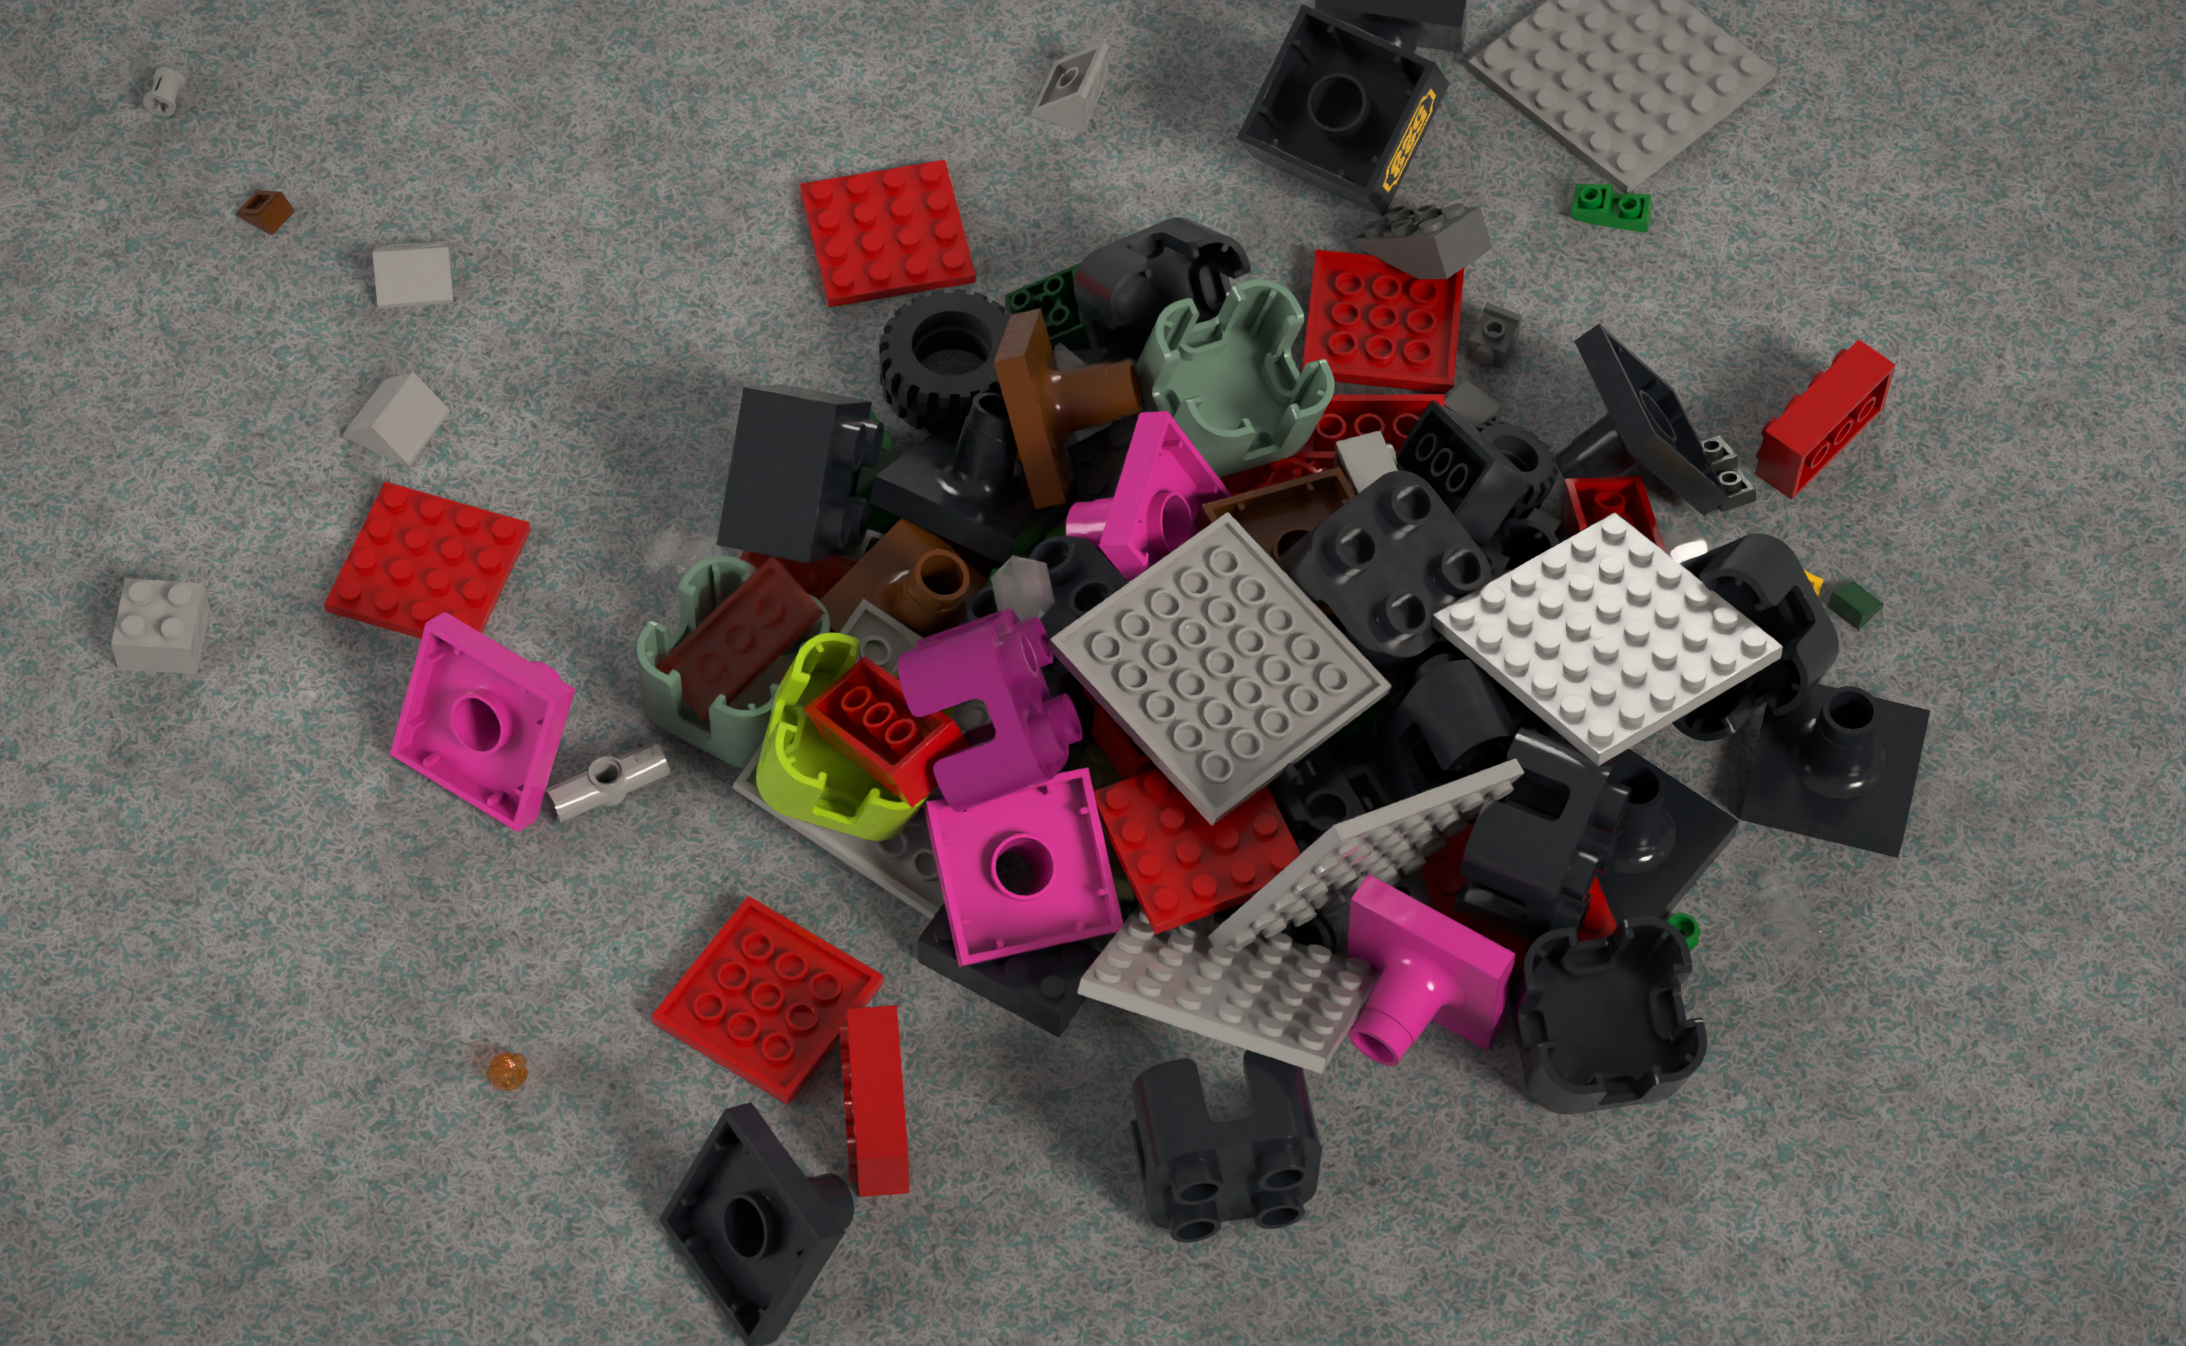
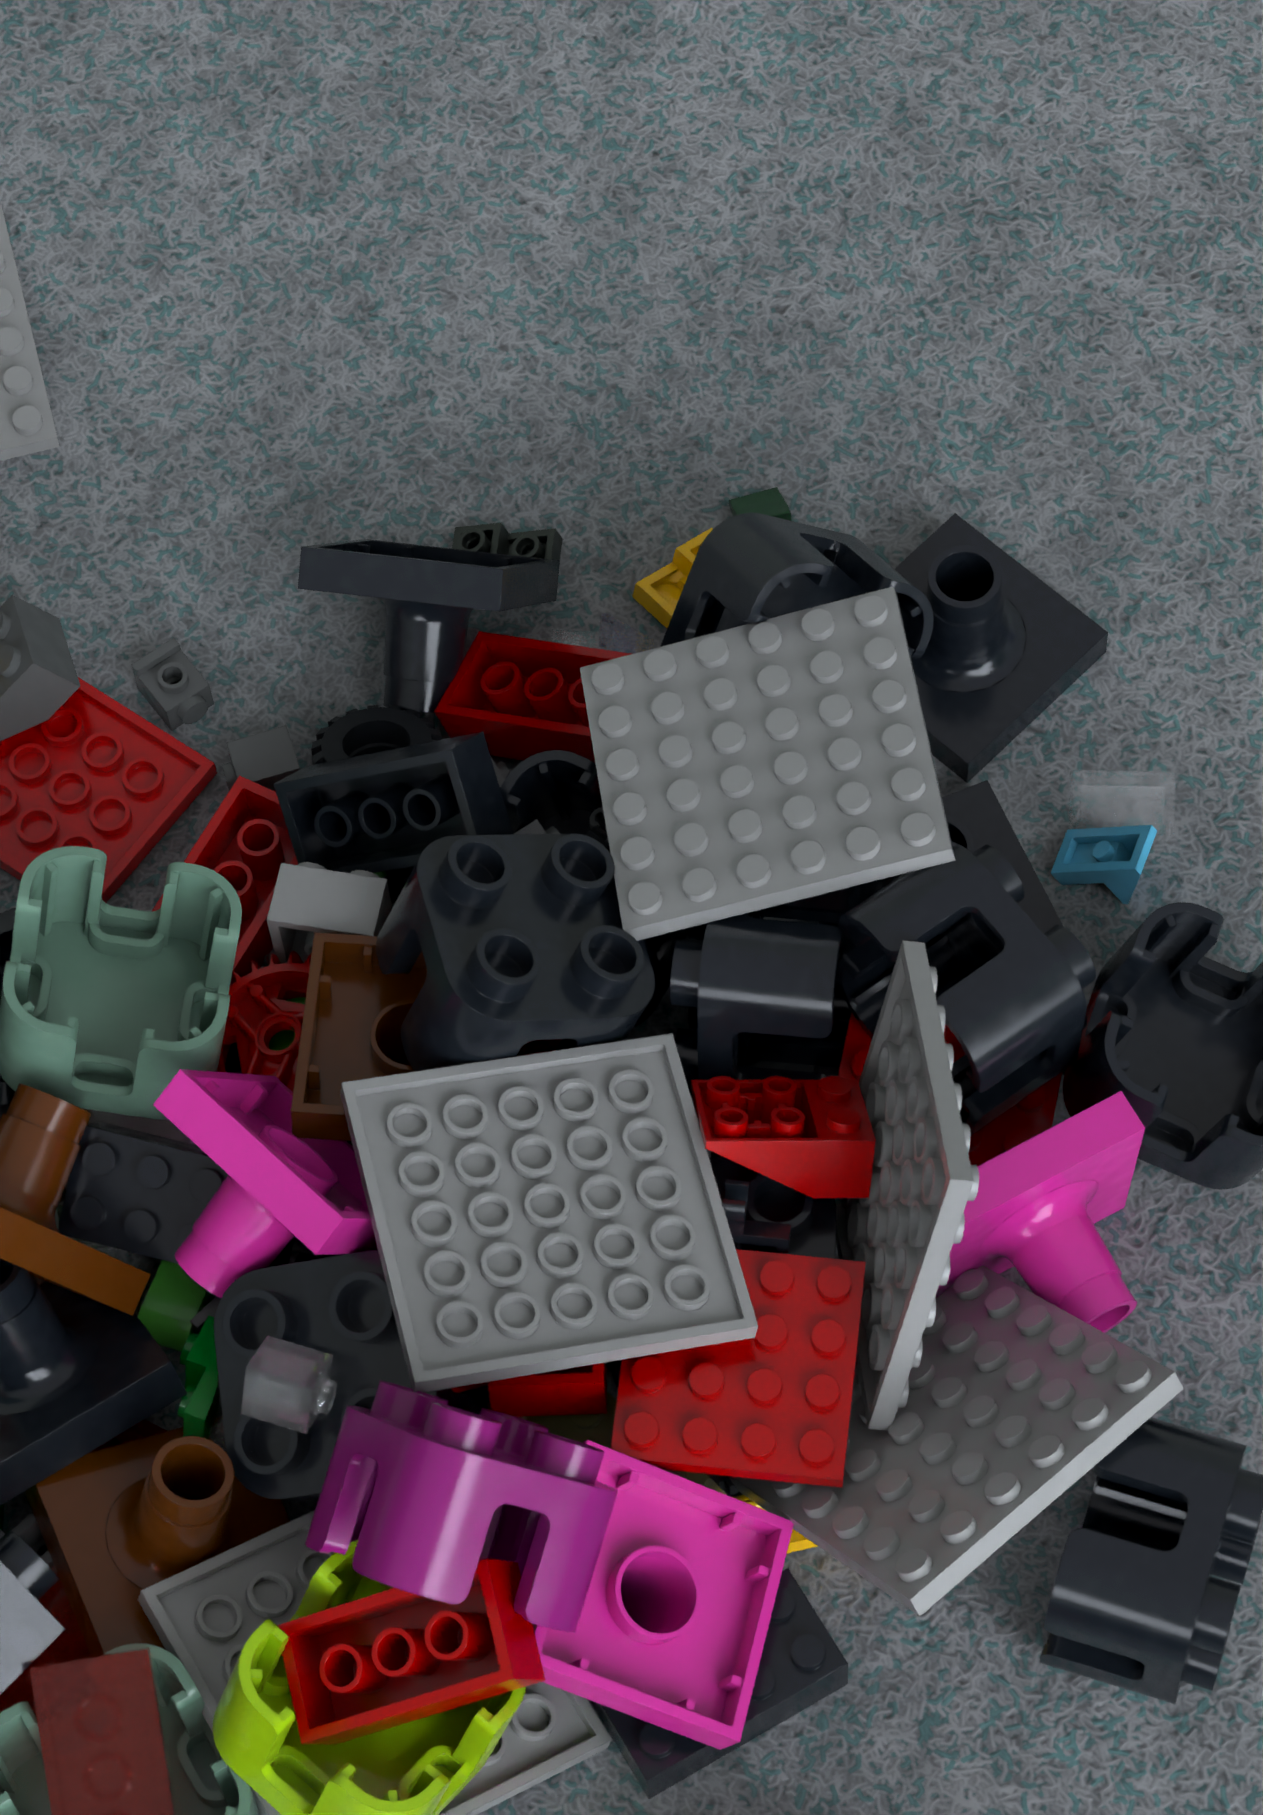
camera: 55 degrees left, 5 degrees up
(1362, 768) = (791, 1131): none -> red slope
(1601, 207) = (68, 476): green slope -> none
(1688, 926) = (1089, 908): green plate -> none
(1731, 921) = (1105, 856): none -> medium azure slope
(1823, 418) = (515, 408): red brick -> none

